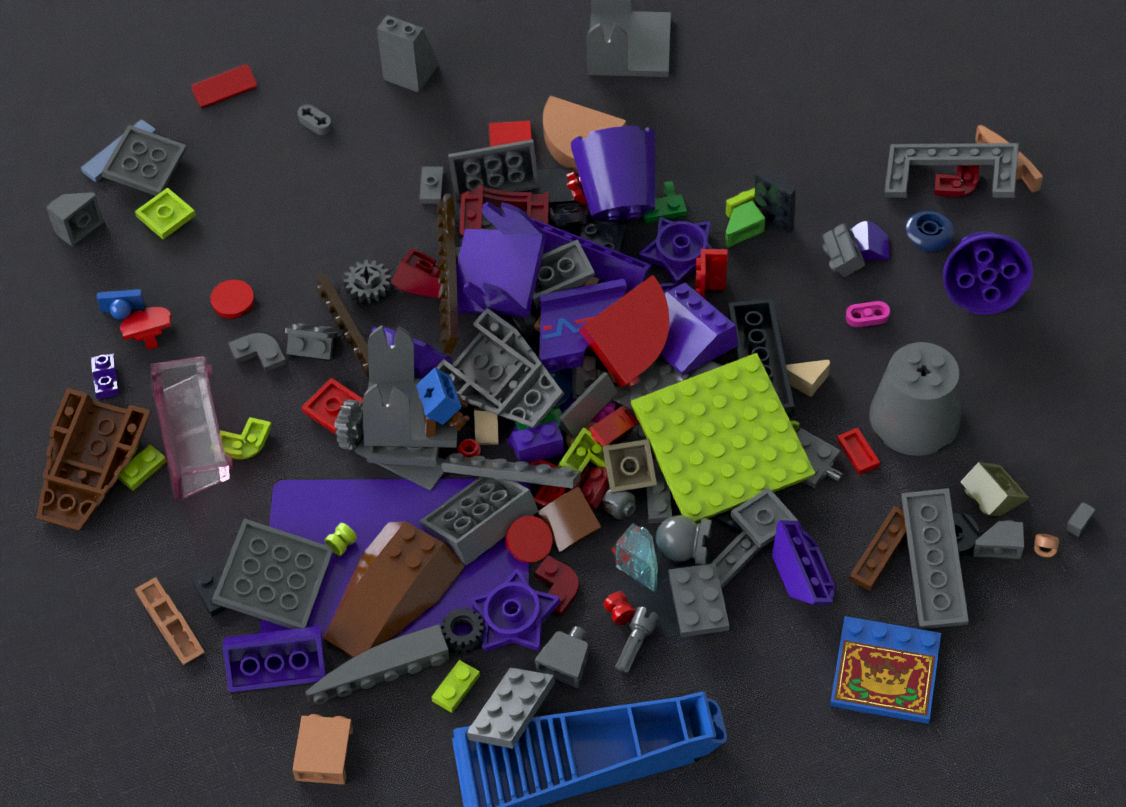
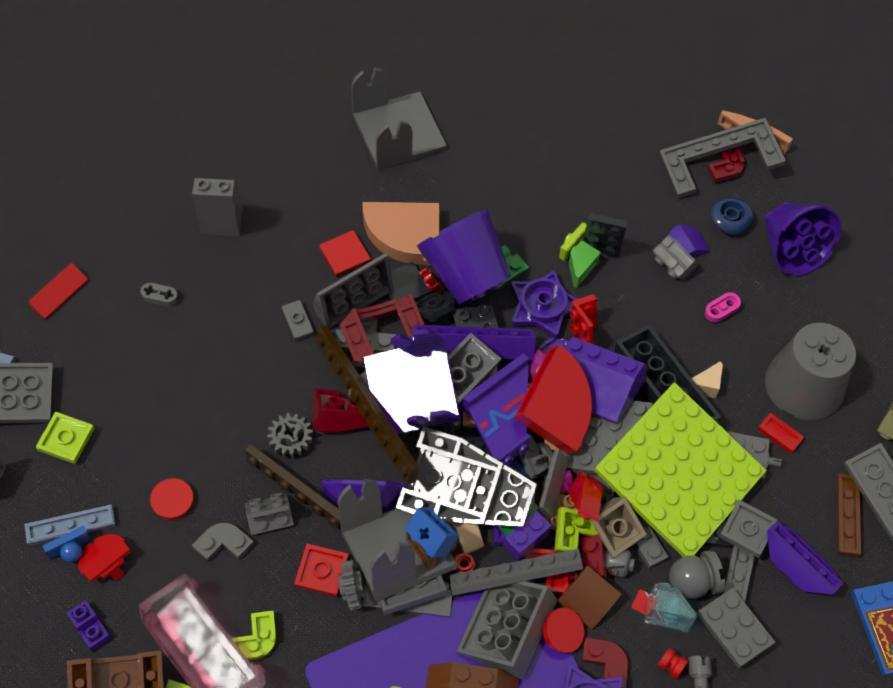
camera: 30 degrees left, 5 degrees up
(151, 290) = (53, 528): none -> sand blue tile

